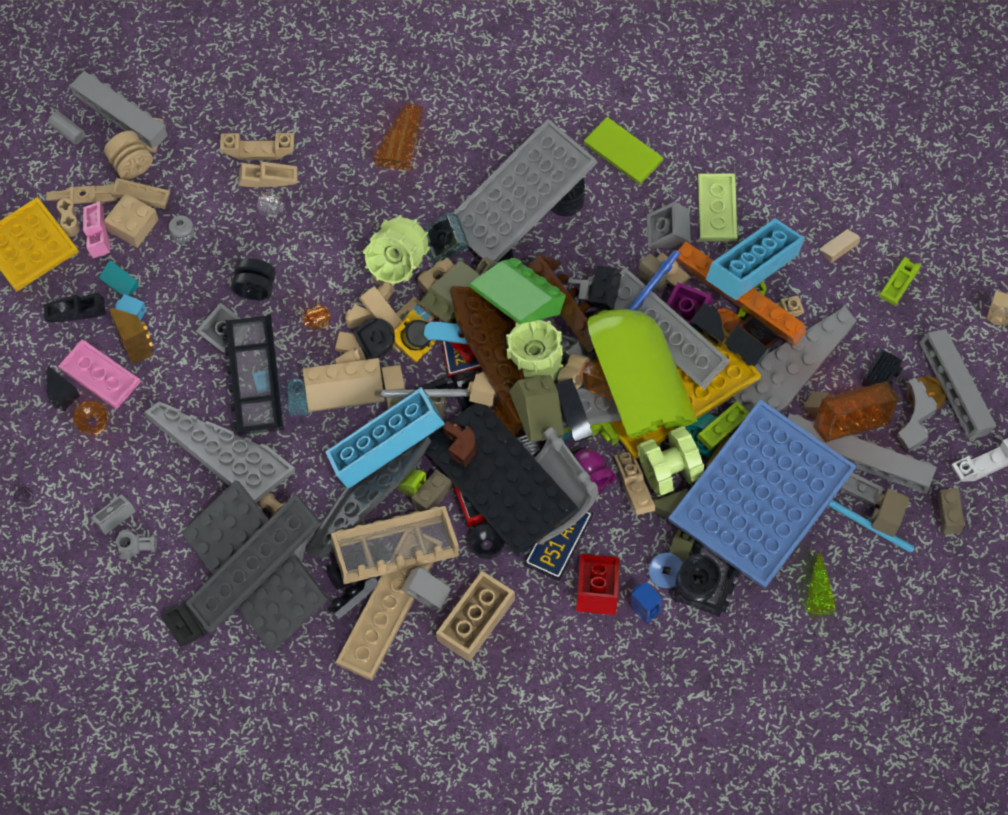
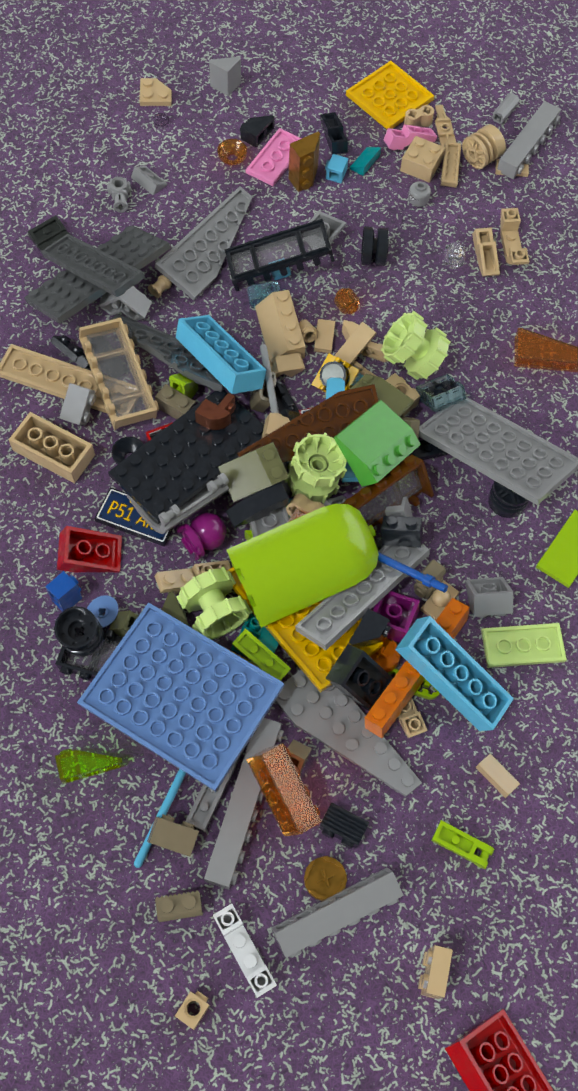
camera: 80 degrees right, 0 degrees up
(375, 337) = (326, 343): black tile -> none
(924, 407) = (301, 869): light grey arch -> none

